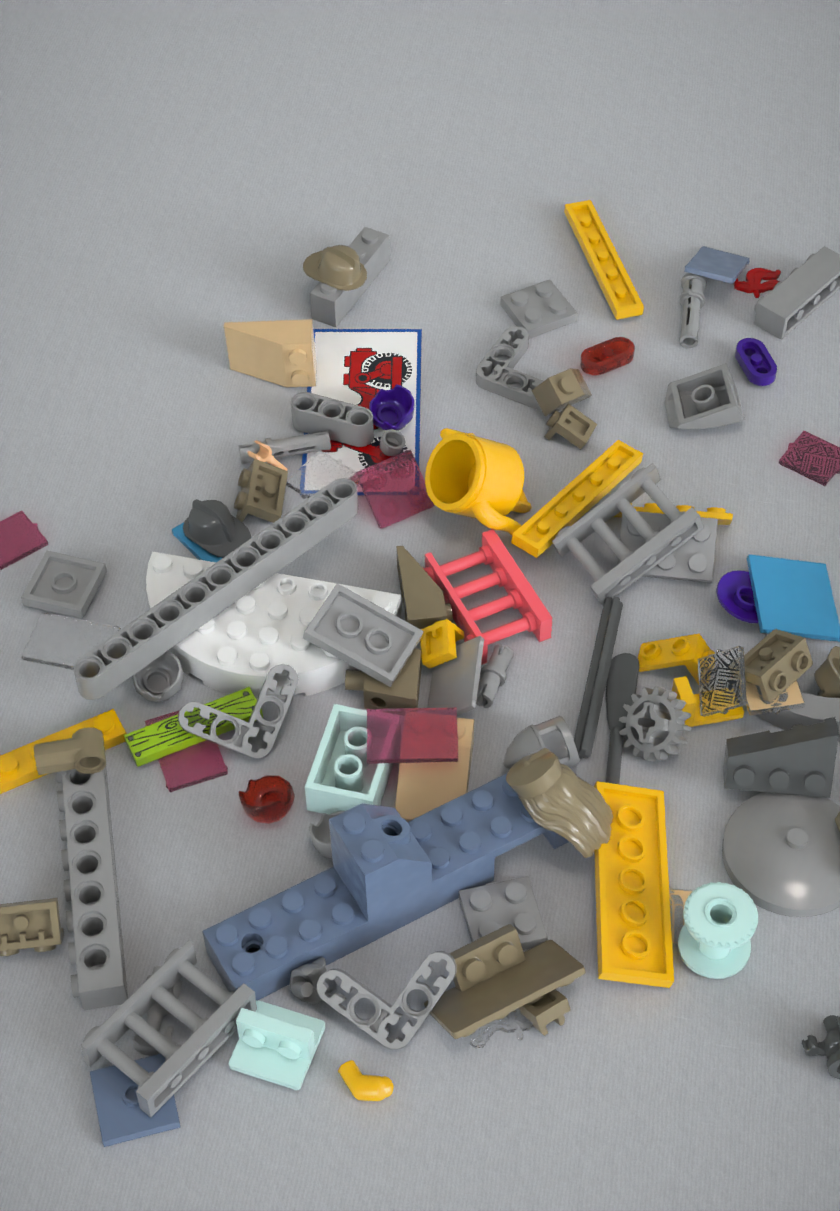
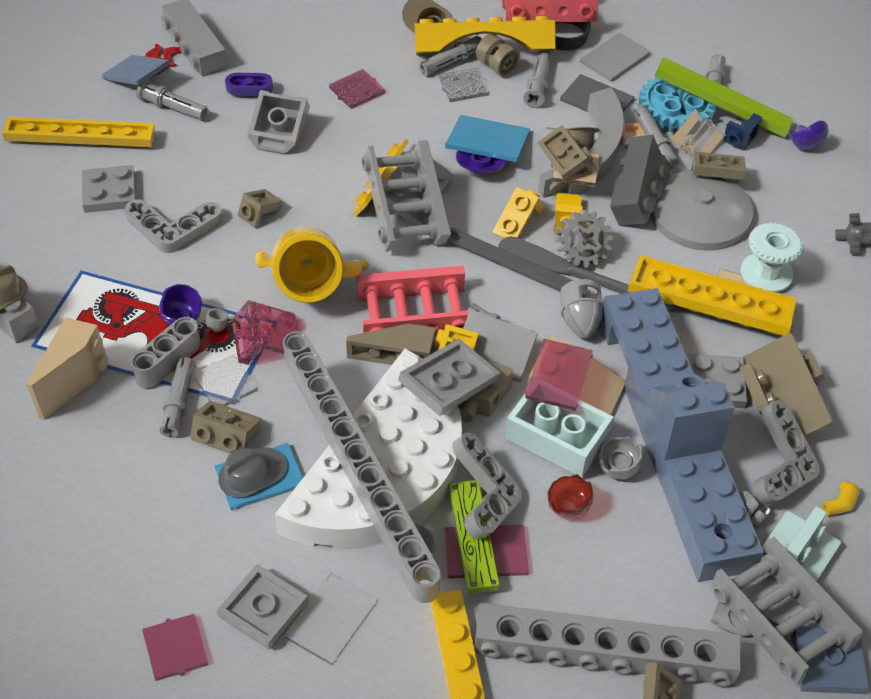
camera: 75 degrees left, 0 degrees up
(81, 752) = (496, 617): dark tan piece -> none
(265, 455) = (186, 408): light nougat hand -> none
(560, 390) = (226, 193): dark tan slope -> none
(561, 801) = (655, 297): dark tan hair -> none
(577, 498) = (344, 220): yellow plate -> none
(607, 356) = (192, 162): clear red plate -> none
(722, 681) = (567, 185): clear piece -> none

